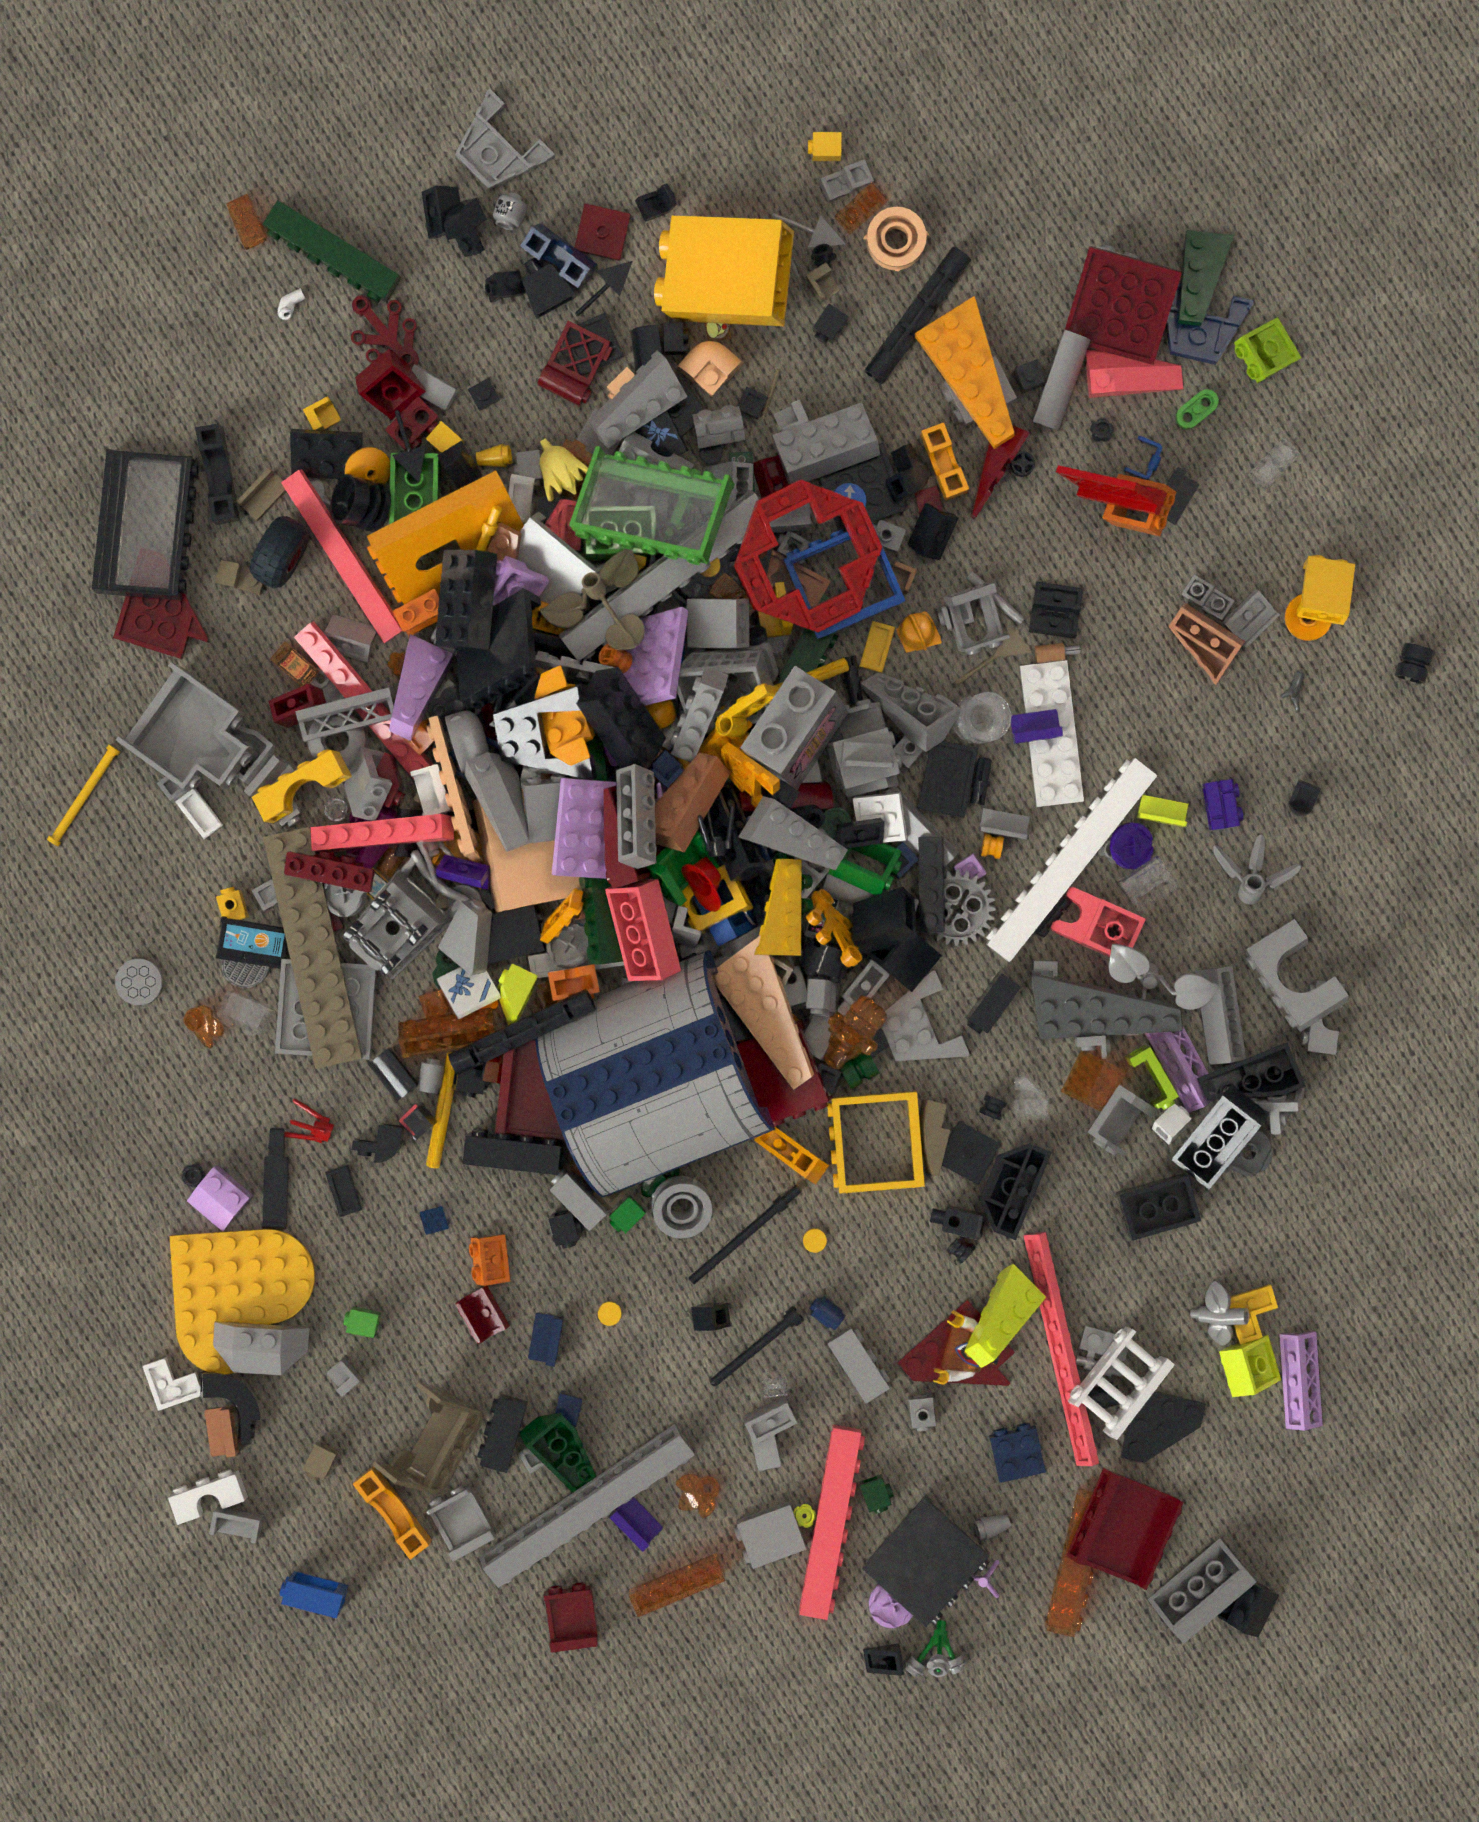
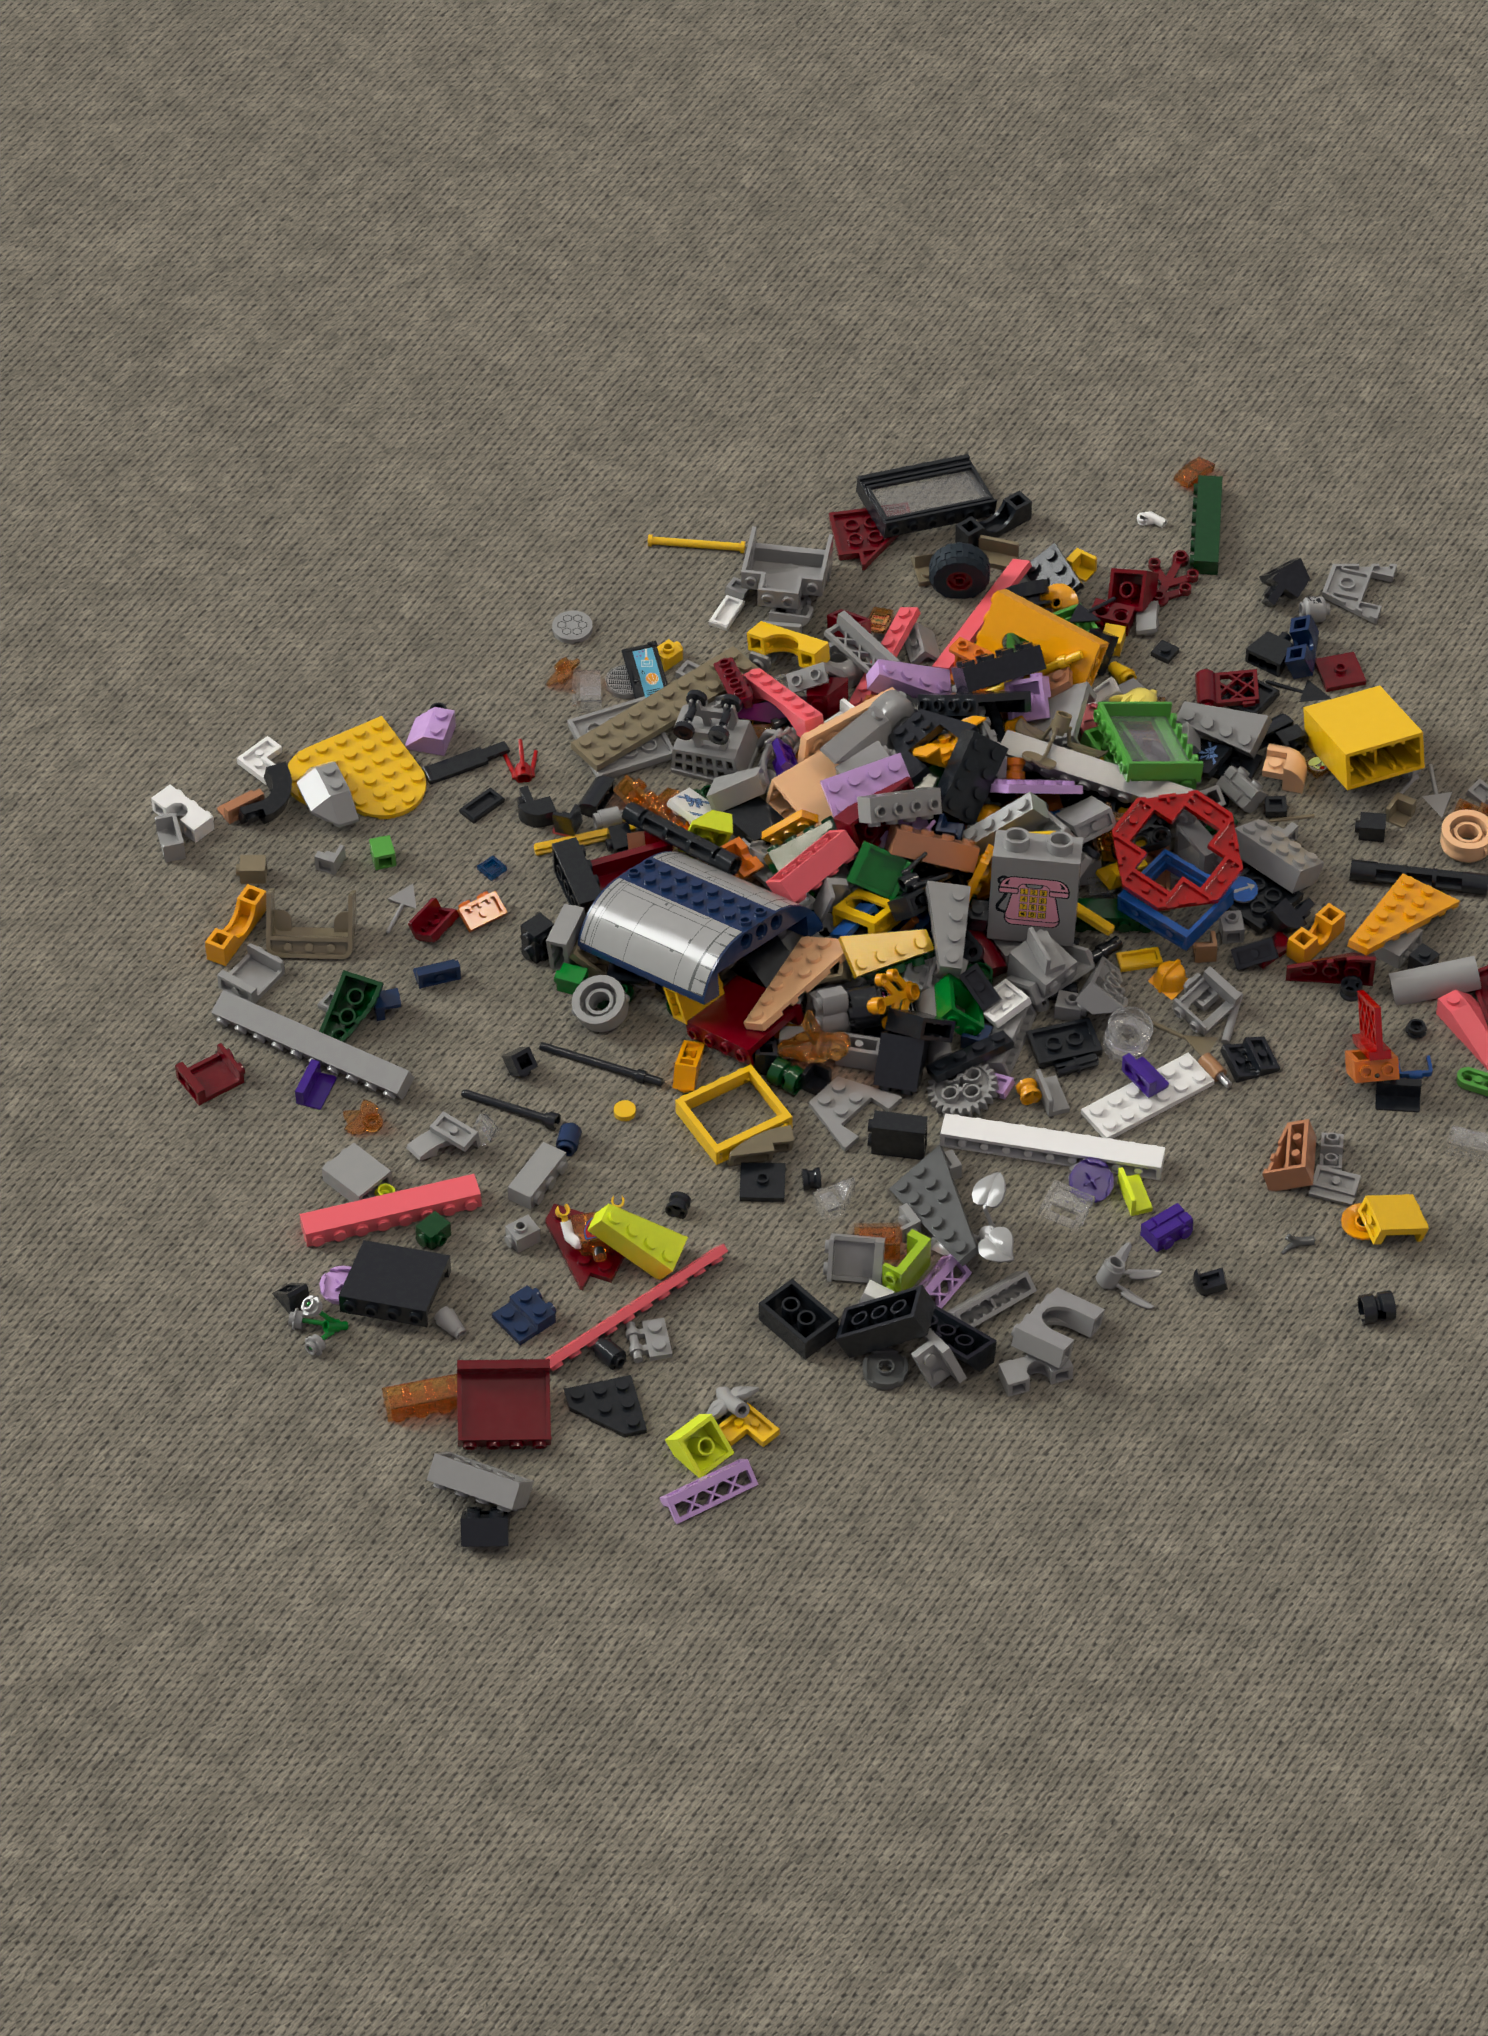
camera: 65 degrees right, 40 degrees down
(313, 1594) = (141, 900): blue window -> none
(430, 1323) = (405, 898): none -> light grey piece
(502, 1433) = (327, 972): black brick -> none
(504, 285) = (1255, 627): black bracket -> none
(609, 1313) = (482, 1004): yellow tile -> none
(656, 203) = (1388, 687): black bracket -> none
(677, 1585) = (278, 1127): clear orange brick -> none
(704, 882) = (879, 889): red piece -> none
(822, 254) = (1423, 803): black plate -> none
(970, 1224) = (702, 1182): black torso -> none
(984, 1581) = (402, 1326): lavender plant -> none
(1012, 1187) = (753, 1214): black wedge -> none
(1053, 915) = (997, 1157): black axle -> none
(1095, 919) = (1020, 1187): coral brick -> none
(1143, 1386) = (623, 1368): white fence -> none

